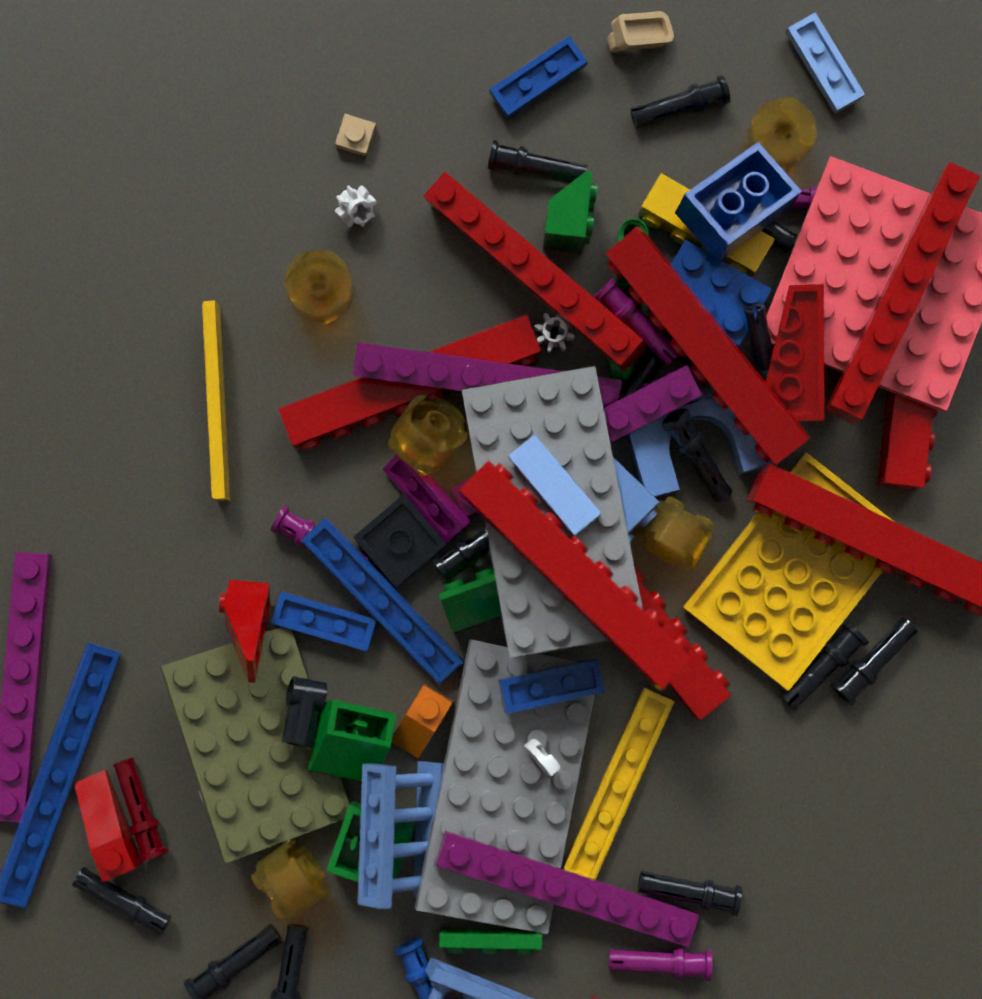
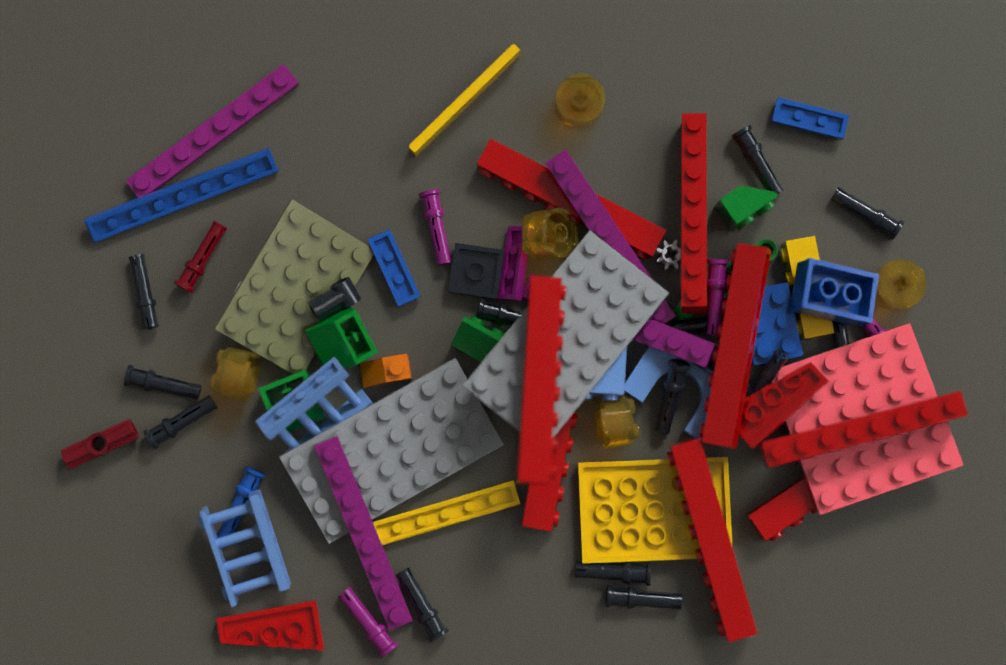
camera: 50 degrees right, 0 degrees up
(106, 826) = (177, 247): red slope -> none
(246, 619) = (359, 222): red slope -> none
(355, 135) = (684, 45): tan plate -> none
(355, 206) = (643, 81): white gear -> none
(382, 601) = (434, 290): blue tile -> none
(489, 940) = (297, 514): green plate -> none
(546, 762) = (423, 456): white tile -> none
(551, 686) = (468, 424): blue plate -> none
(554, 485) = (580, 327): light blue tile -> none
(640, 31) = (888, 153): tan piece -> none
(825, 63) = (964, 274): light blue plate -> none

